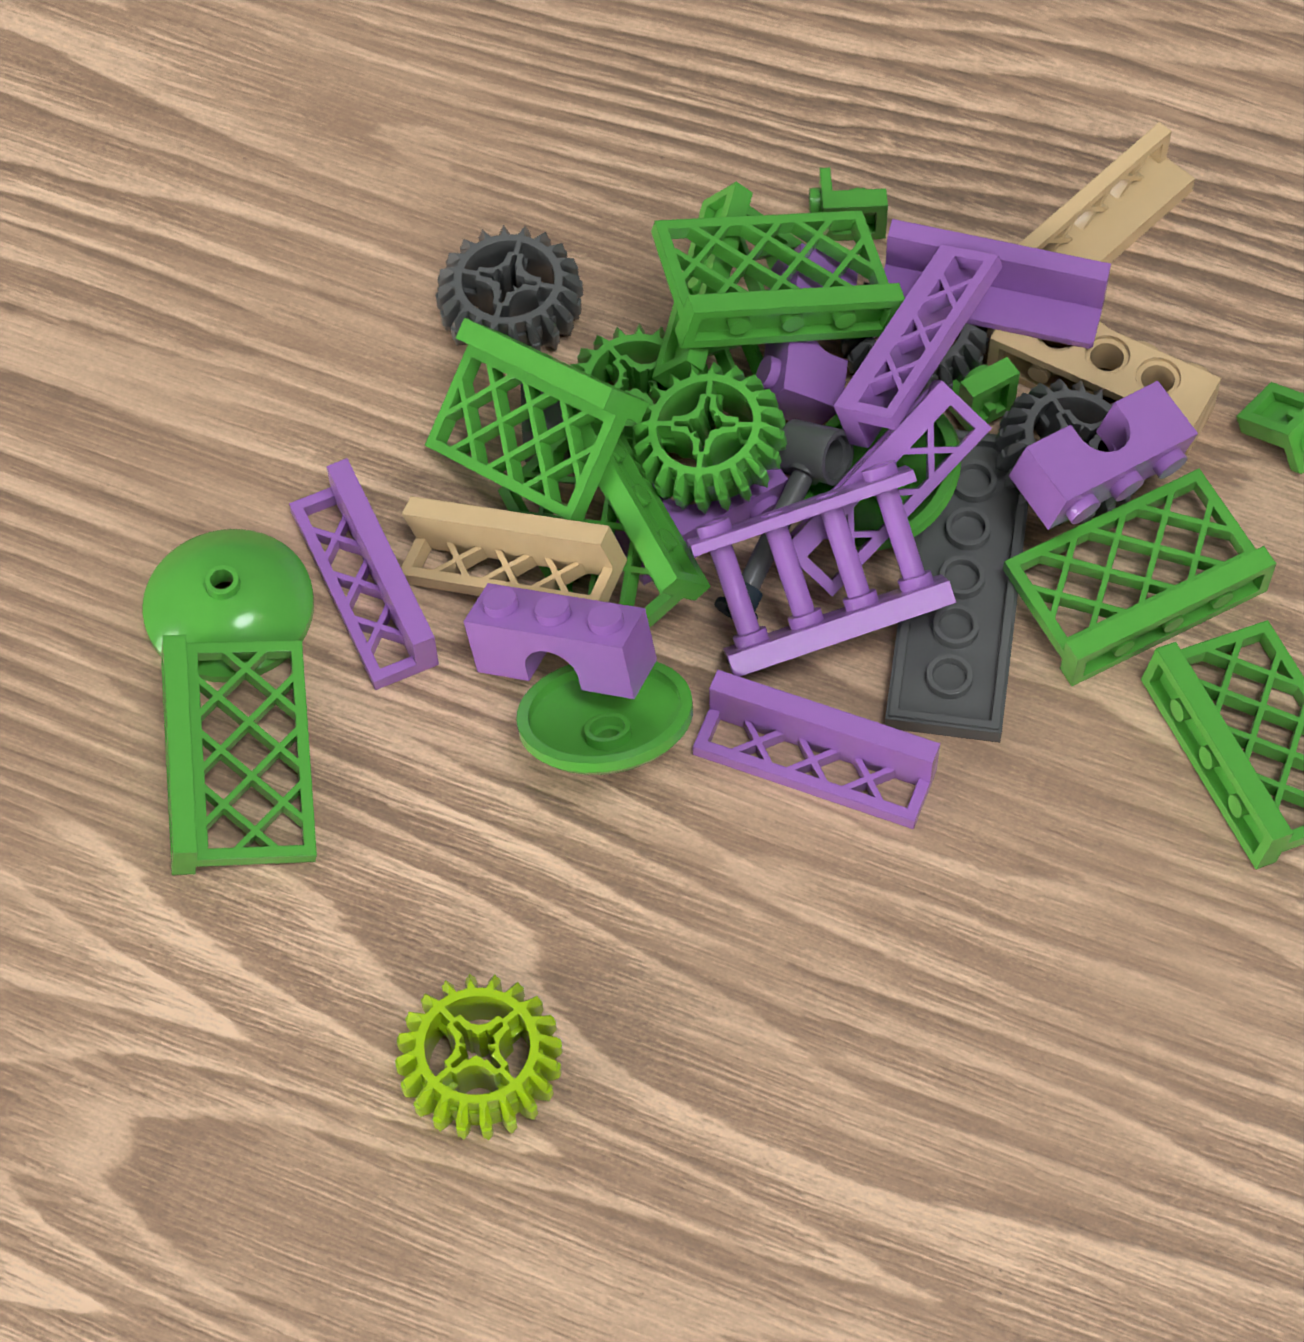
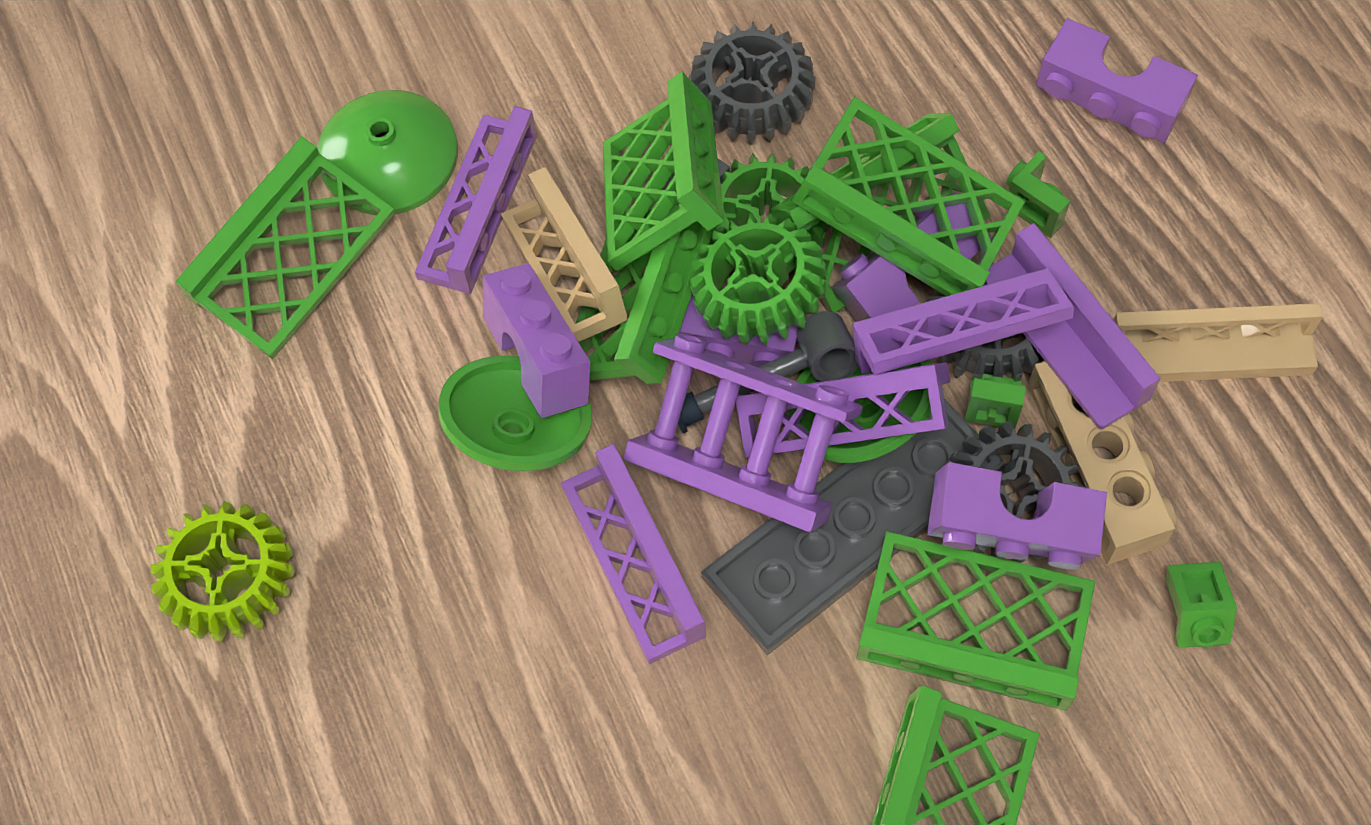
camera: 45 degrees right, 5 degrees up
(780, 84) = (1142, 102): none -> medium lavender arch

